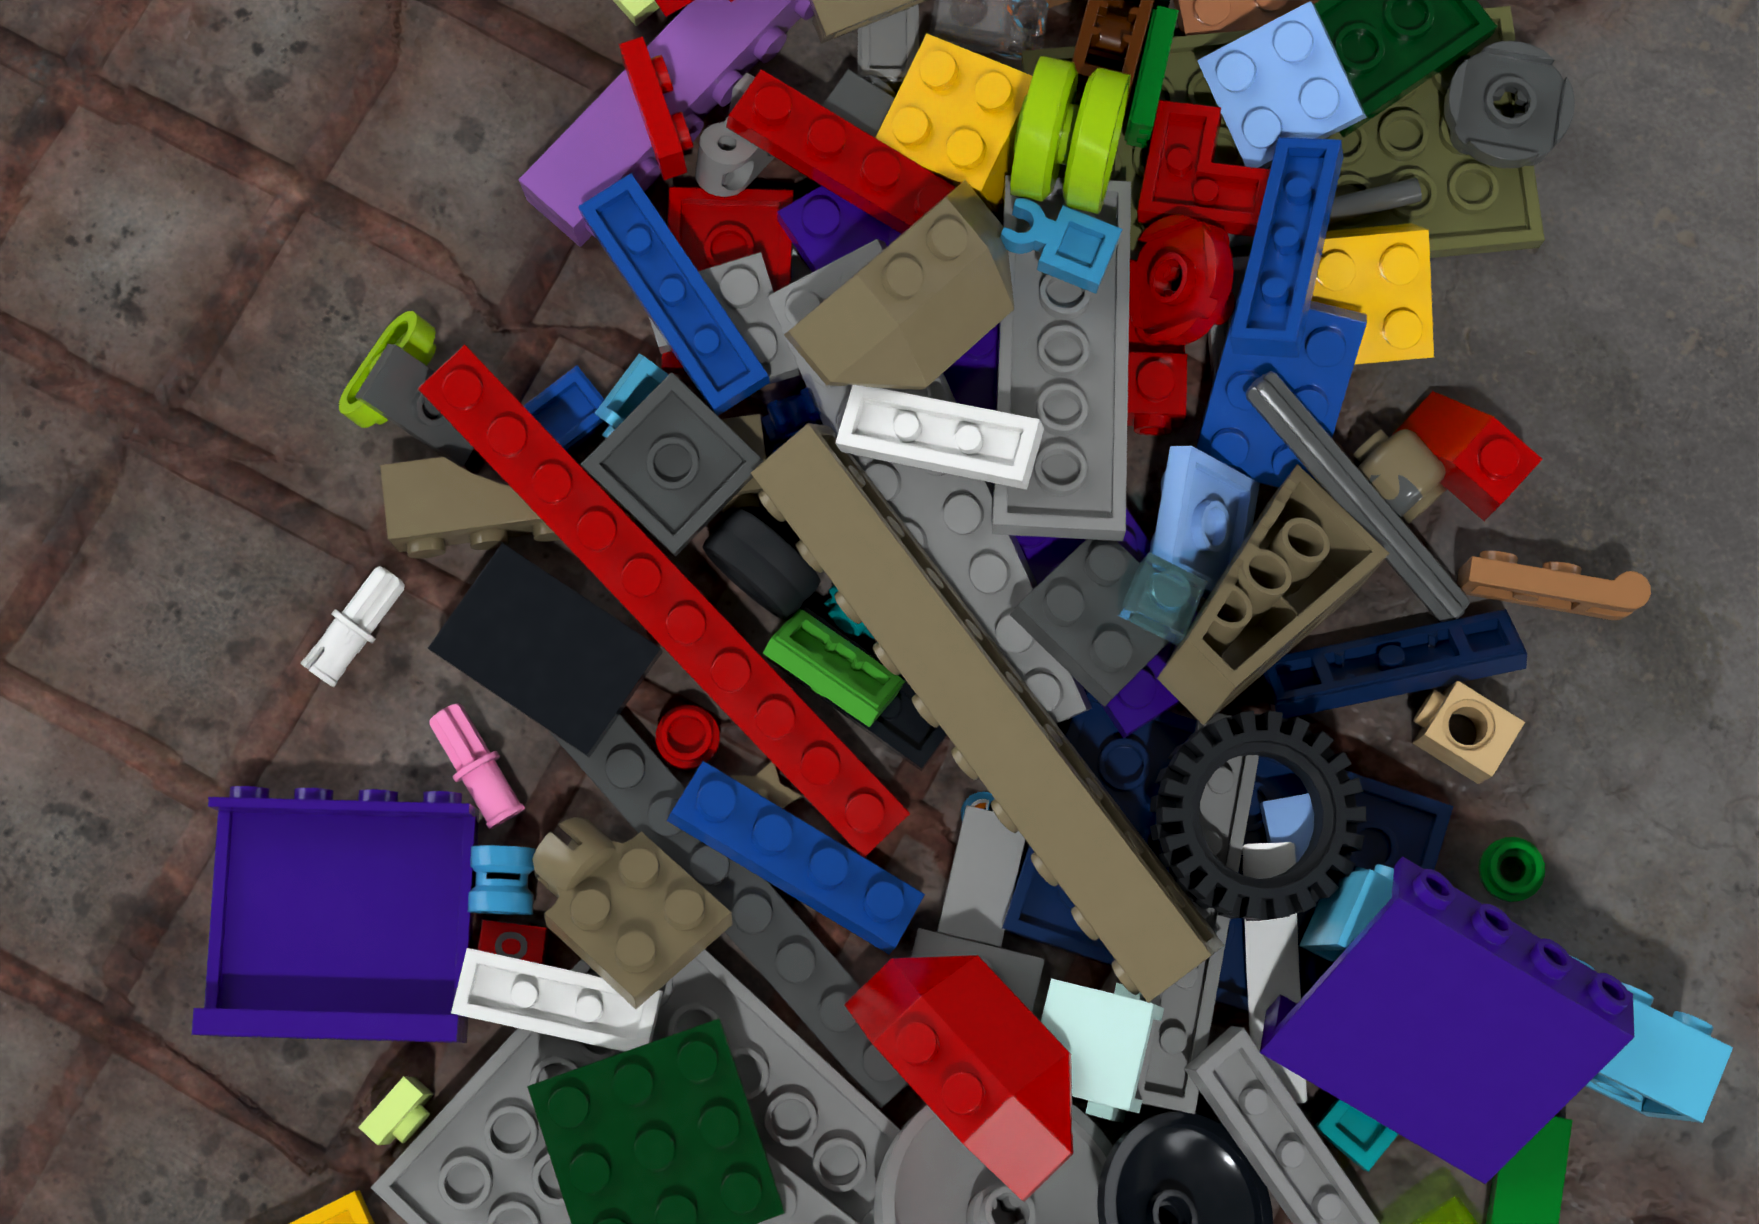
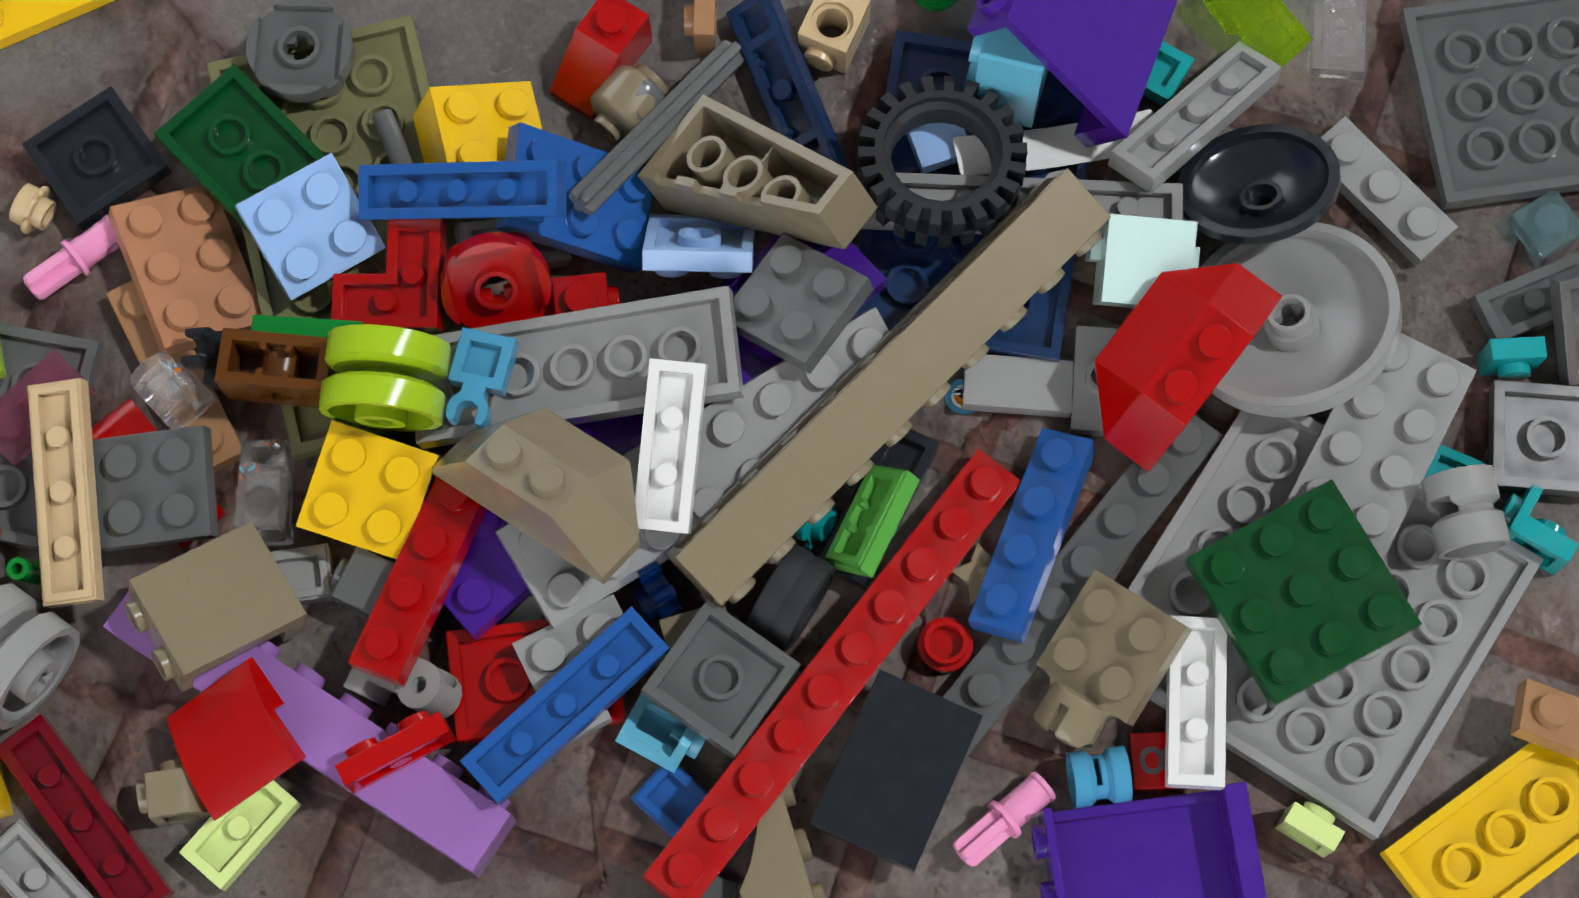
camera: 100 degrees left, 5 degrees down
(1163, 598) = (778, 251): clear light blue plate -> none

